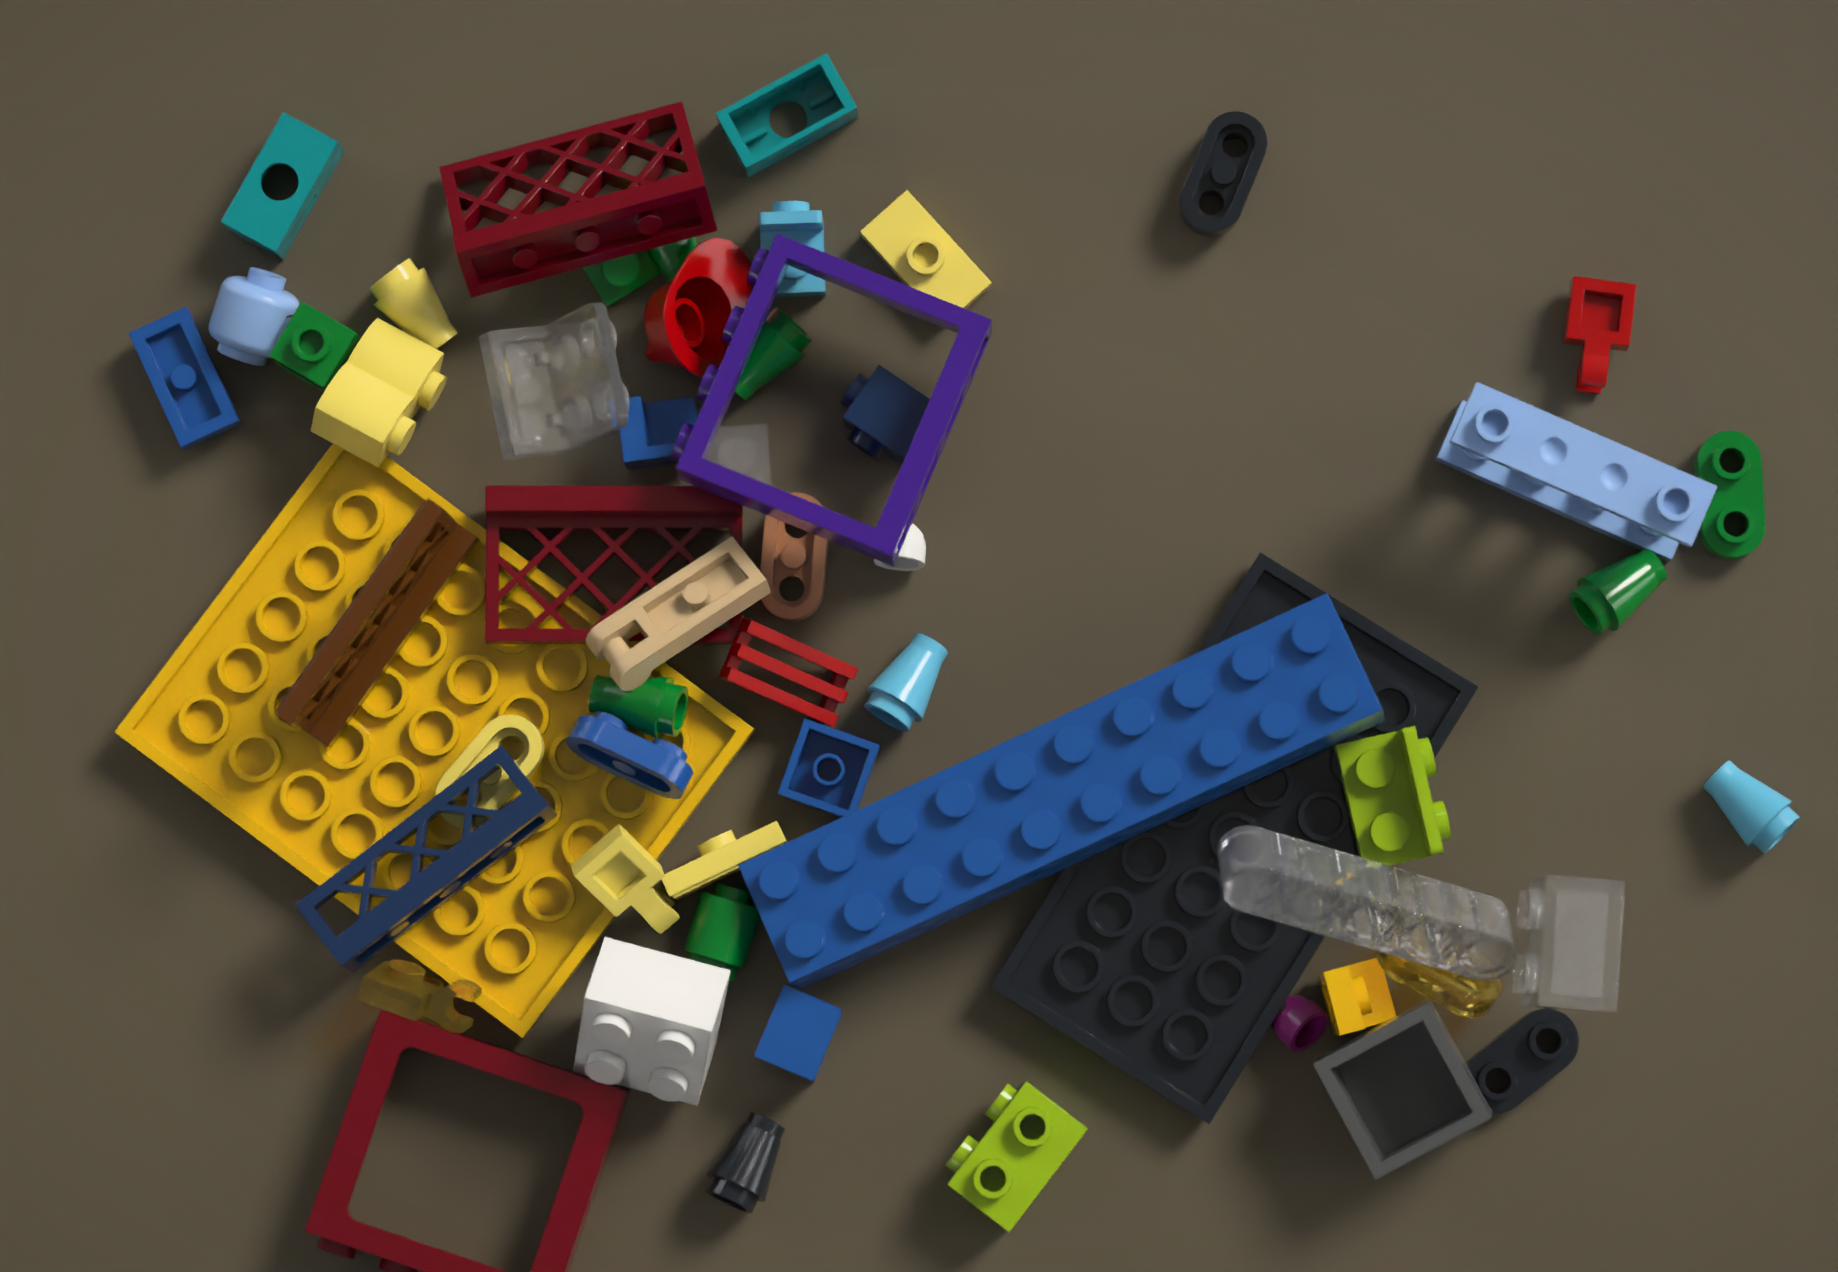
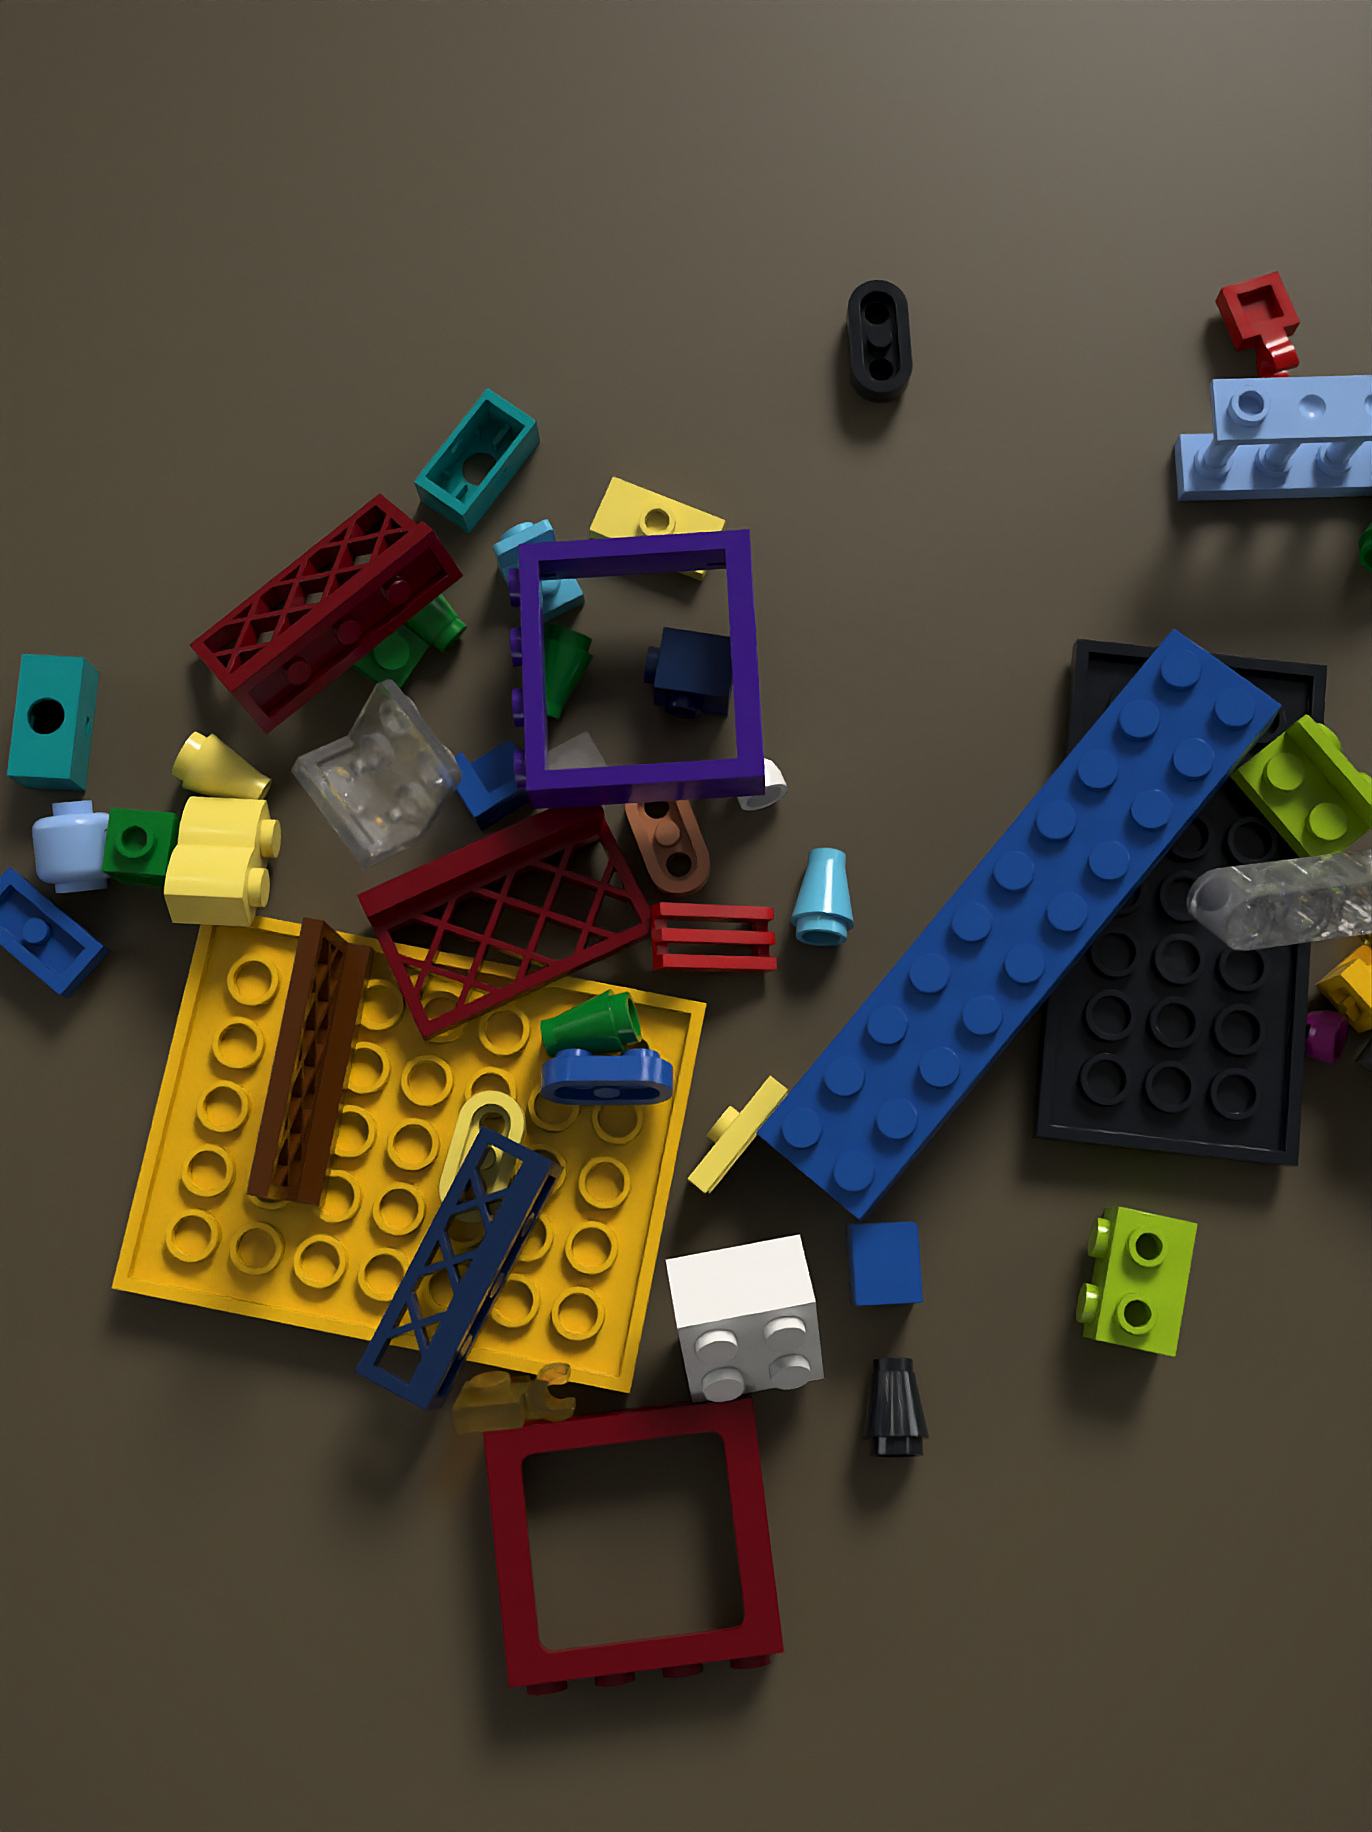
camera: 30 degrees left, 5 degrees down
(625, 875) = (653, 1193): light yellow plate -> none
(677, 613) = (589, 927): tan plate -> none
(691, 311) = (474, 657): red piece -> none
(723, 929) = (766, 1199): green brick -> none
(828, 769) = (791, 1009): blue piece -> none

